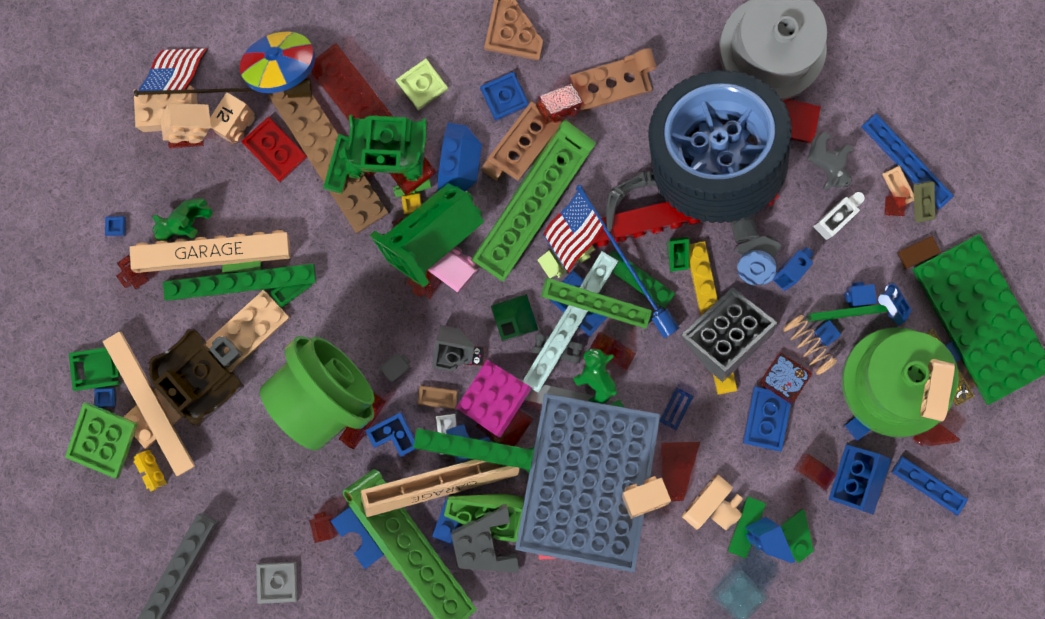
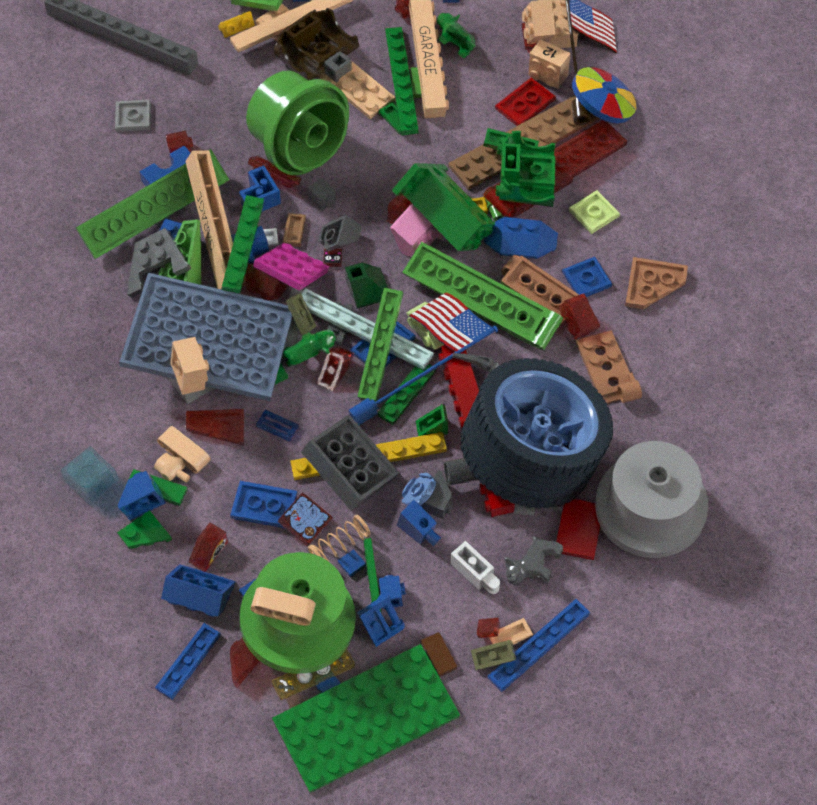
camera: 90 degrees right, 25 degrees down
(554, 386) = (301, 313): none -> olive plate

